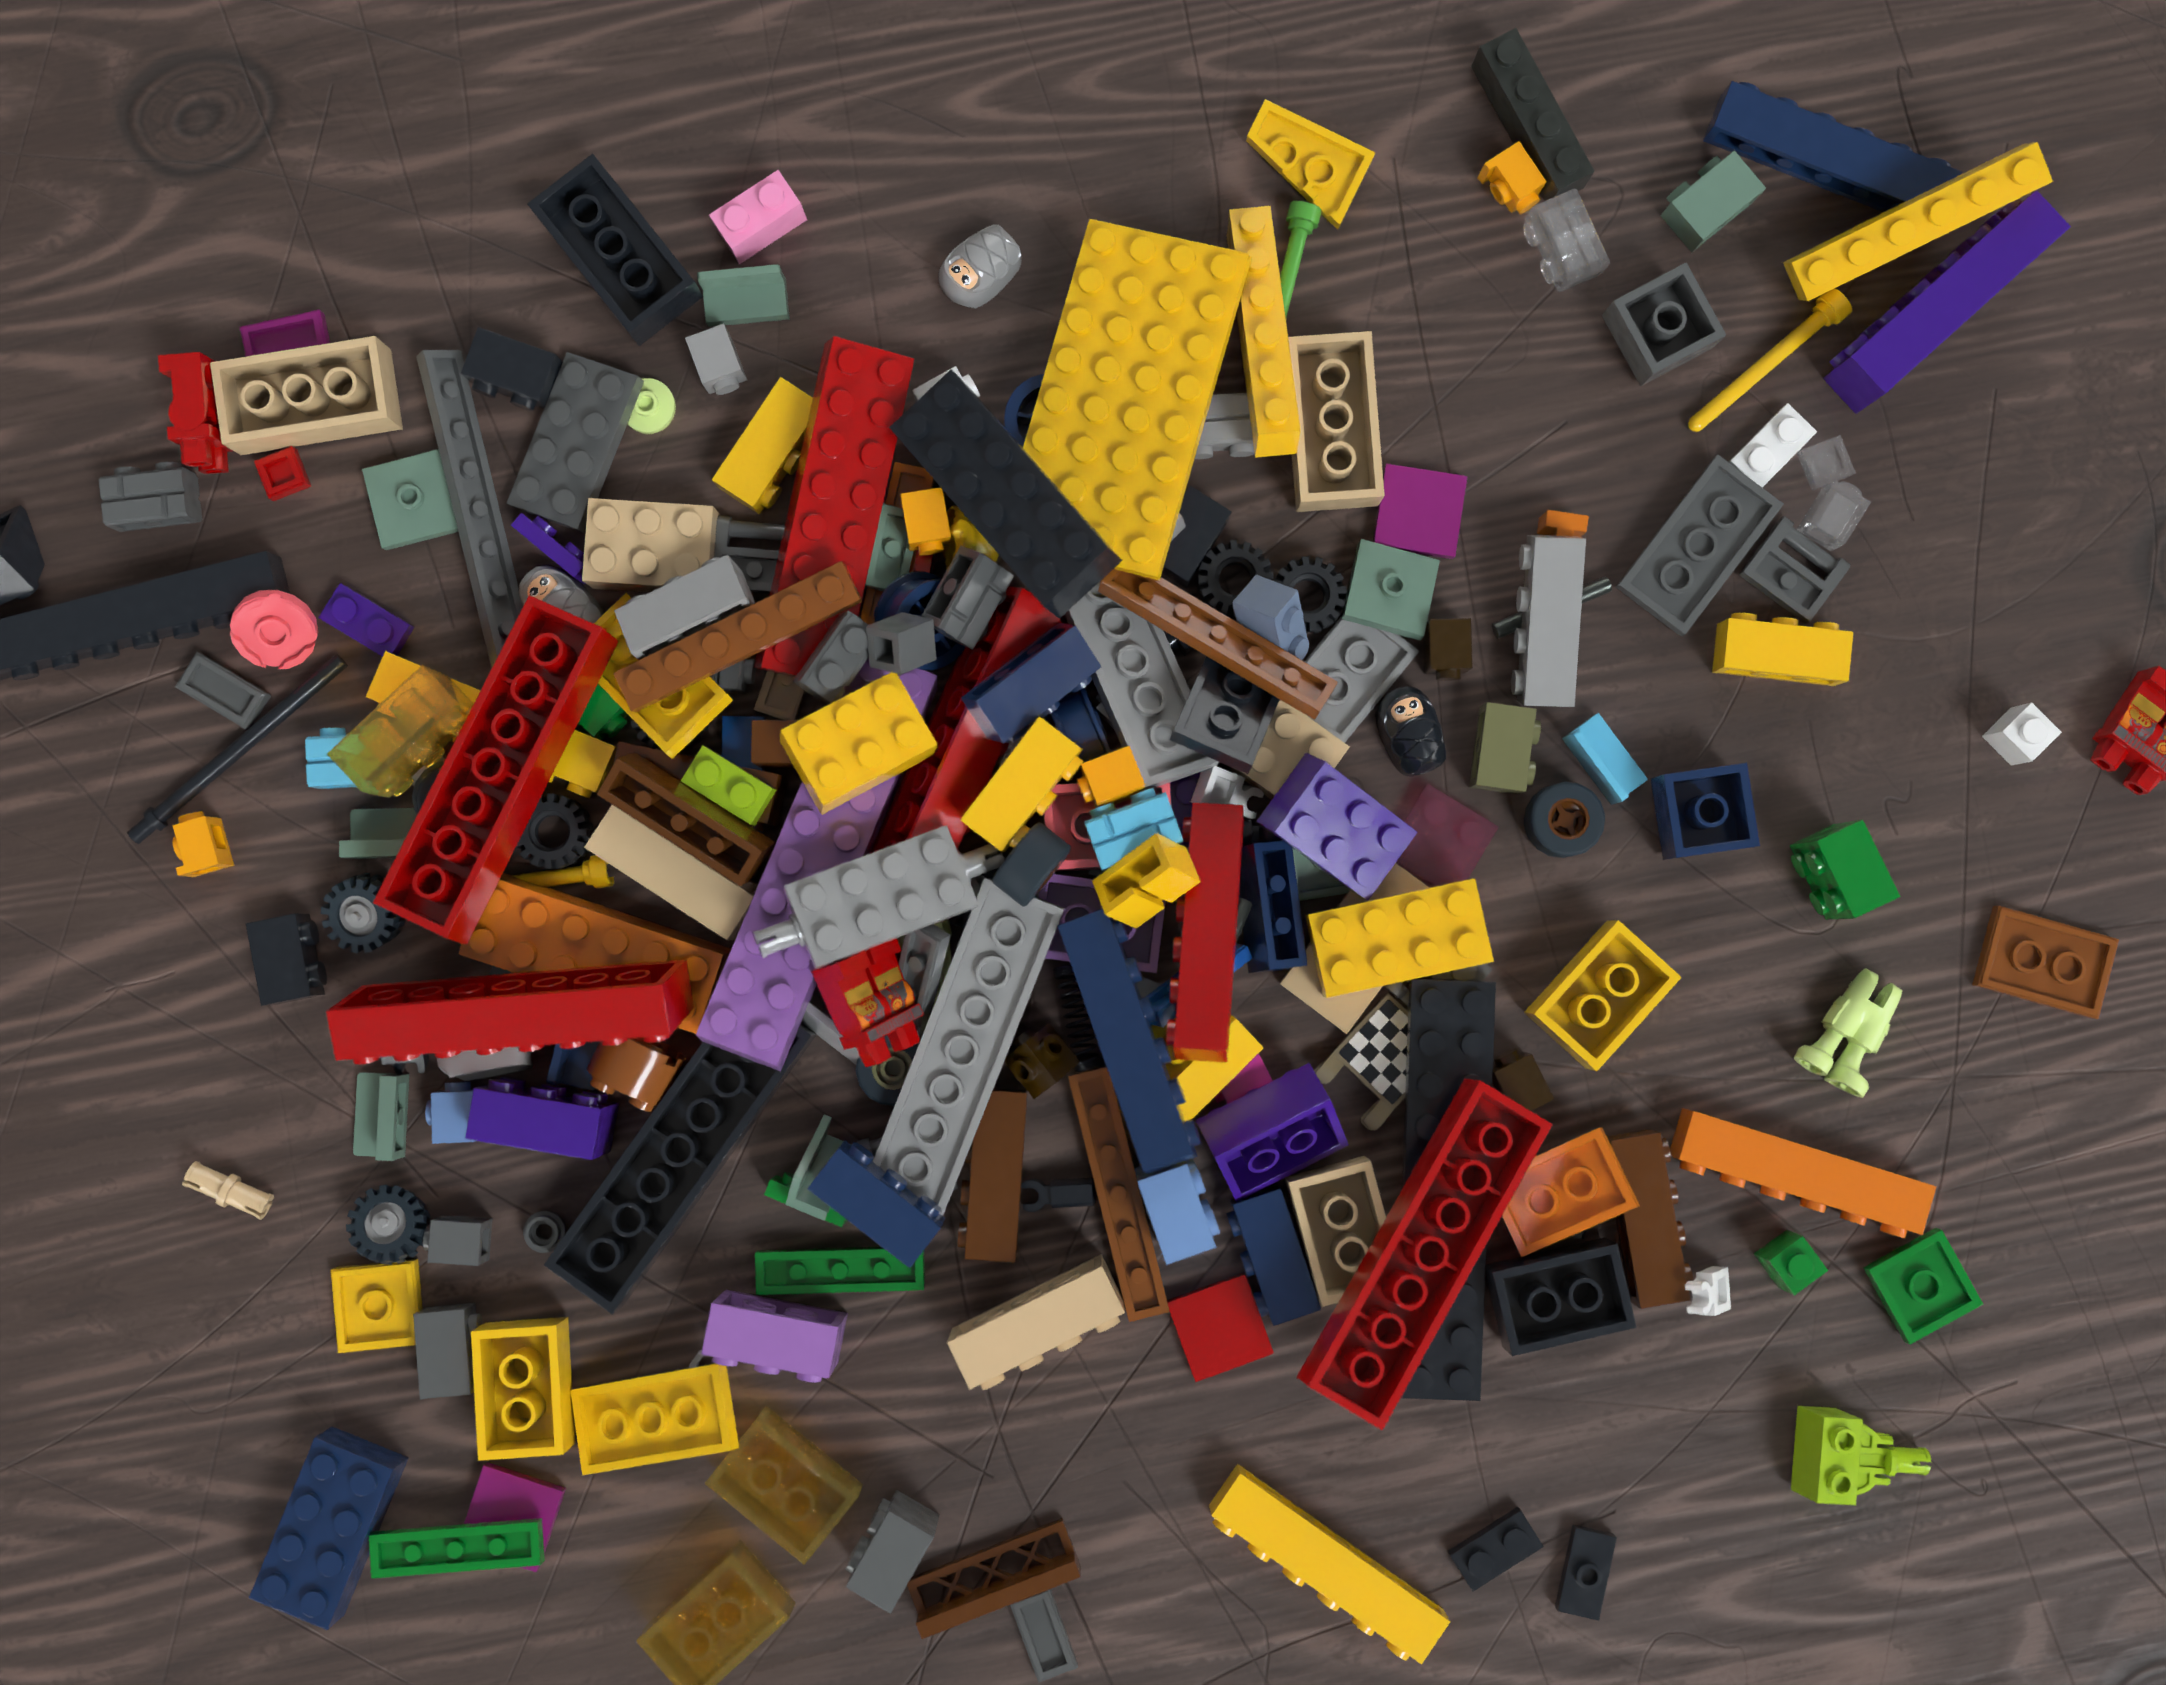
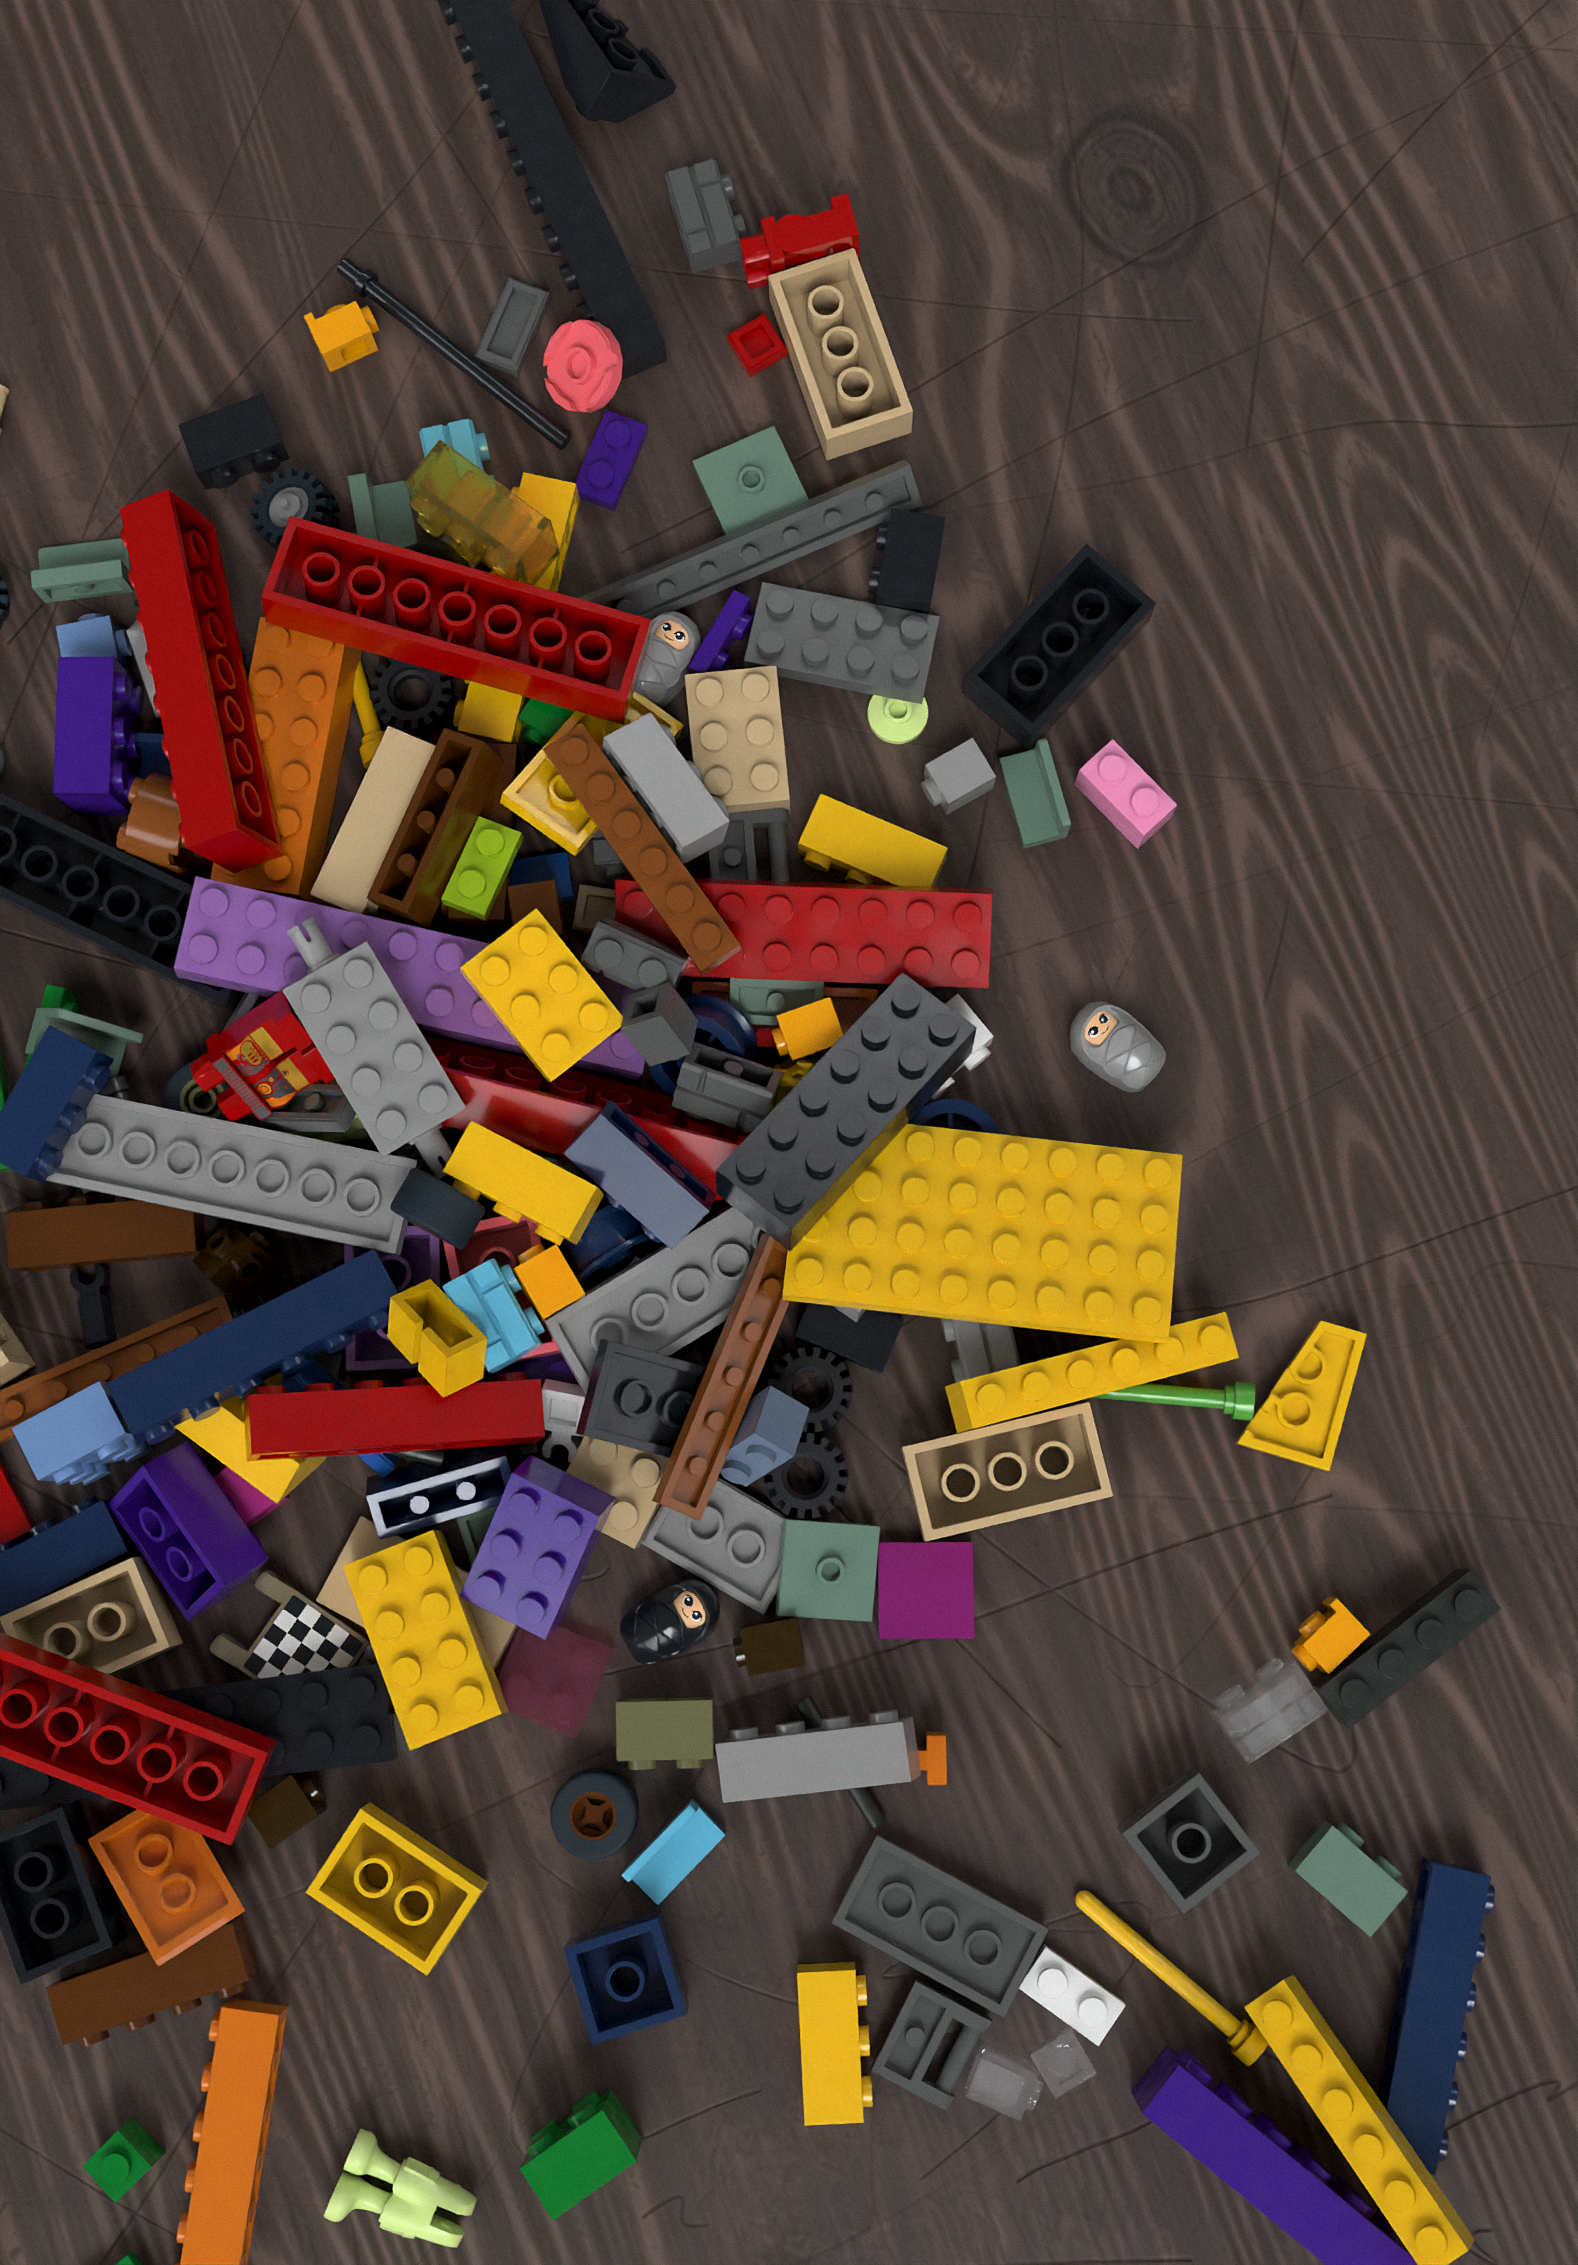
camera: 85 degrees right, 5 degrees down
(285, 333) = (904, 322): magenta tile -> none
(1710, 1291) = (77, 2068): white plate -> none

